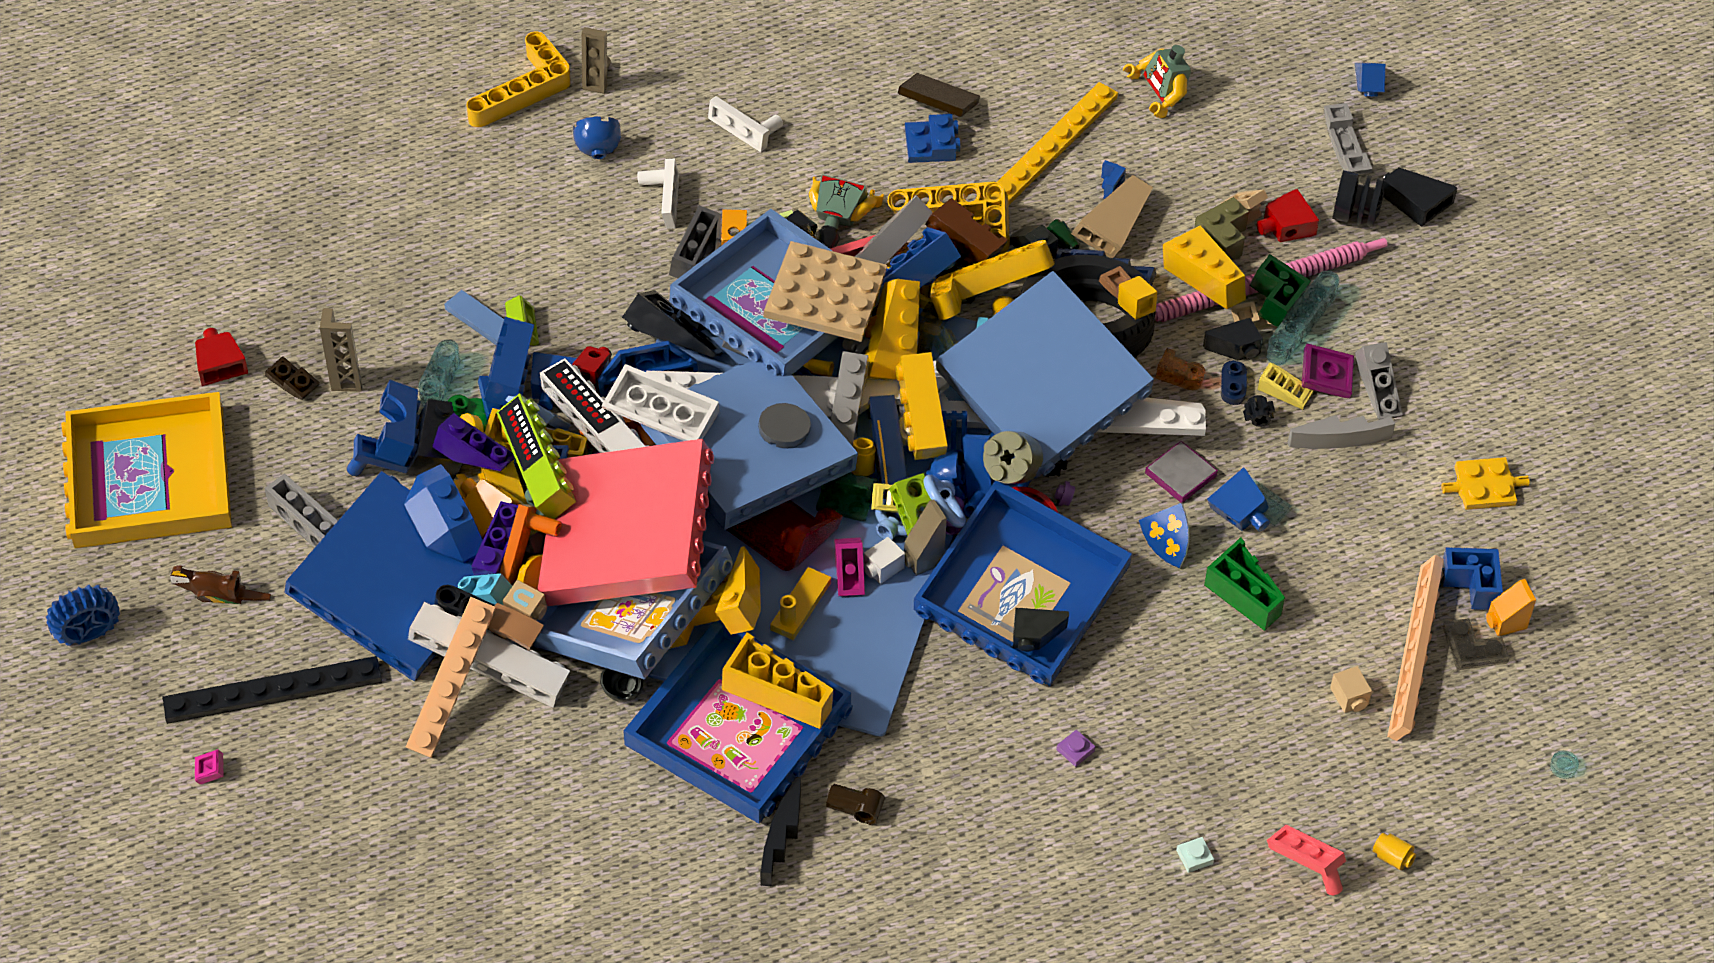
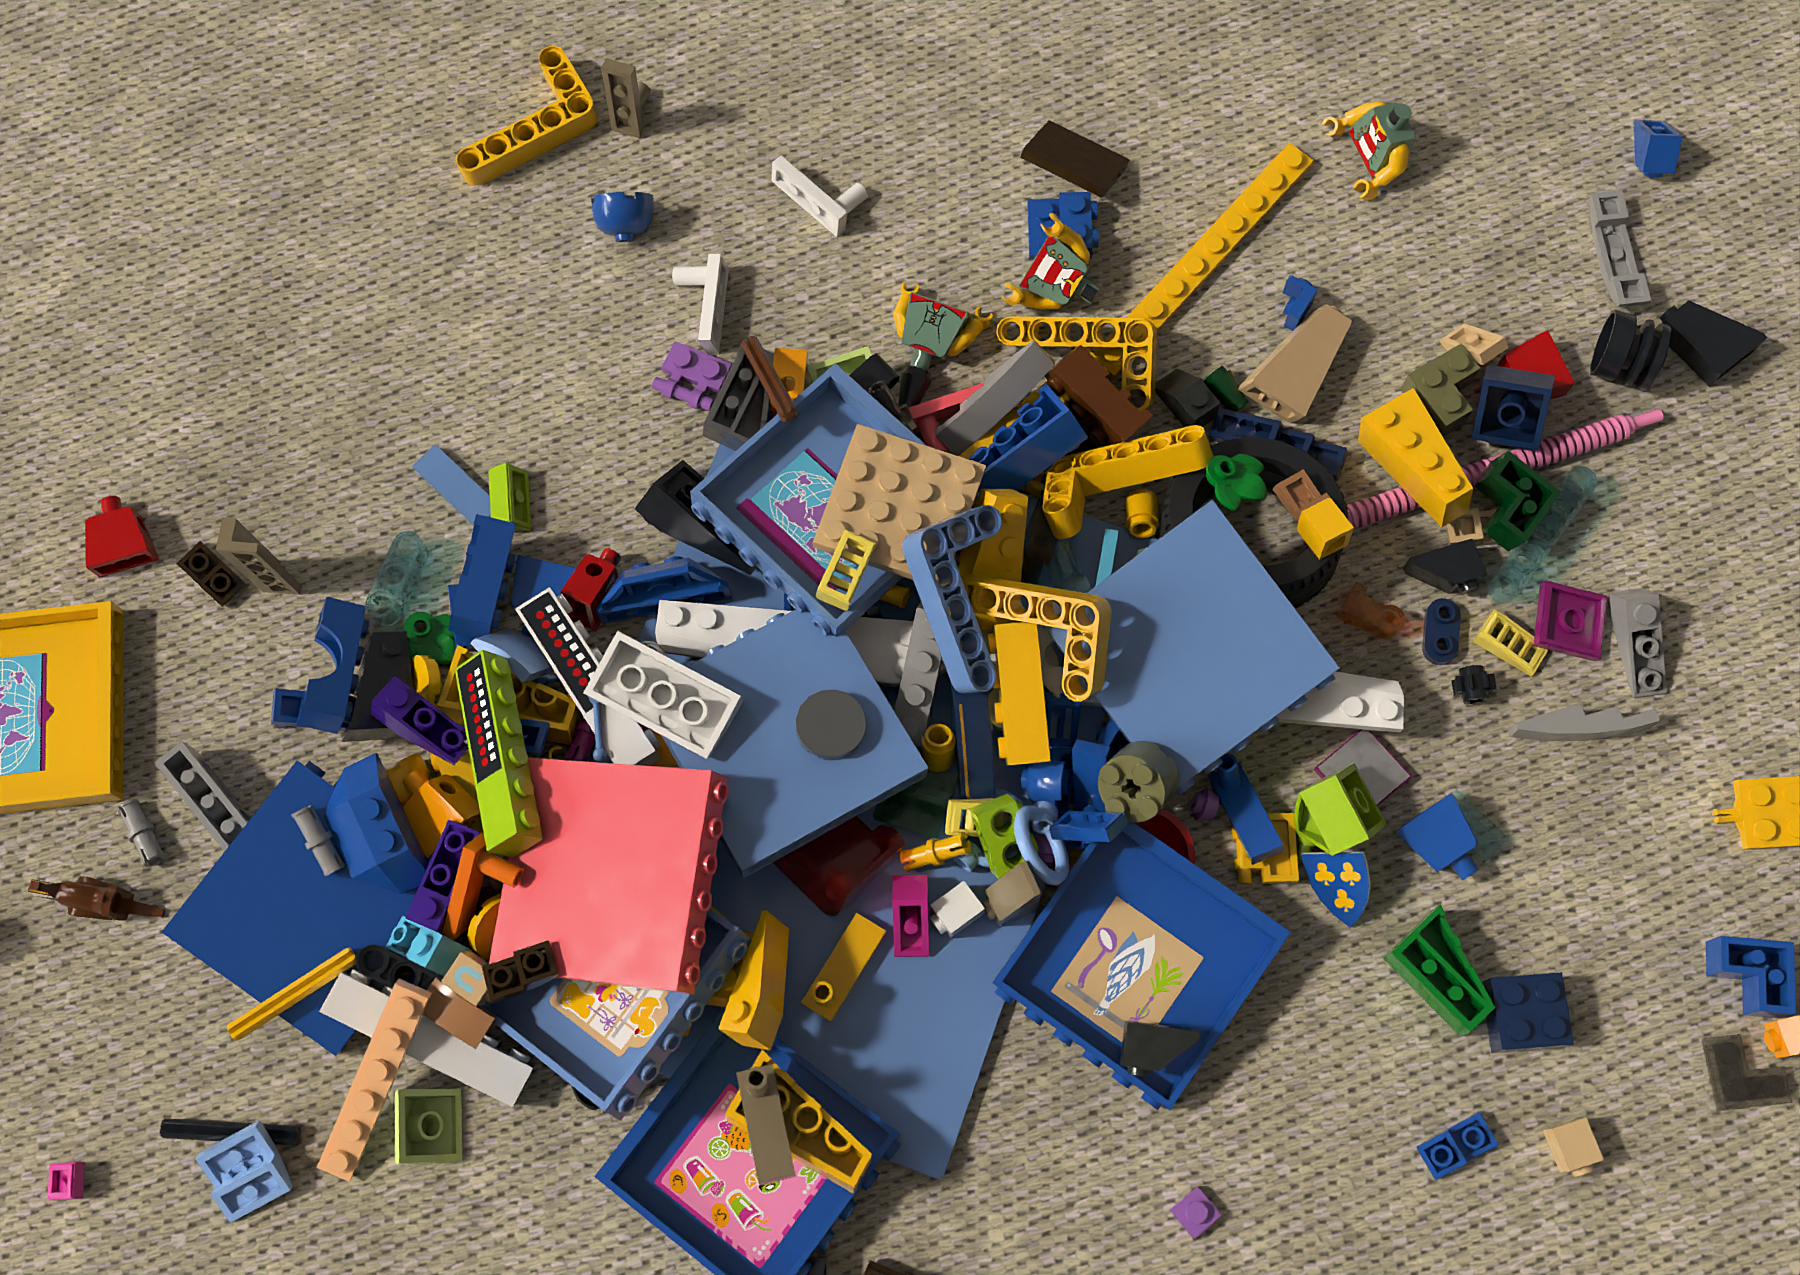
camera: 10 degrees right, 20 degrees up
(250, 544) = (141, 832): none -> light grey pin
(271, 689) = (151, 1061): black plate -> none
(334, 731) = (220, 1130): none -> black axle
(349, 752) = (245, 1171): none -> light blue slope
(383, 624) = (291, 994): none -> yellow axle
(401, 520) = (318, 840): none -> light grey pin
(490, 717) = (428, 1126): none -> yellowish green slope
(573, 581) = (520, 973): none -> dark brown slope
(606, 424) = (599, 753): none -> medium blue hinge
(658, 236) = (695, 368): none -> medium lavender plate
(723, 220) = (770, 379): none -> reddish brown axle
(753, 666) = (765, 1124): none -> dark tan piece
(785, 340) = (832, 596): none -> light yellow slope
(854, 316) = (951, 593): none -> medium blue beam
(865, 522) = (935, 851): none -> yellow pin
(930, 162) = (1056, 272): none -> torso
(933, 343) = (1041, 612): none -> yellow beam
(978, 488) = (1088, 826): none -> blue plate
(1073, 273) = (1239, 480): none -> green plate
(1092, 489) = (1245, 810): none -> blue piece
(1120, 515) = (1278, 868): none -> yellow plate
(1159, 484) = (1336, 813): none -> lime piece
(1267, 698) = (1457, 1145): none -> blue slope
(1273, 233) = (1513, 407): none -> dark blue brick
(1312, 609) = (1528, 1013): none -> dark blue brick
(1415, 649) = (1665, 1082): light nougat plate -> none

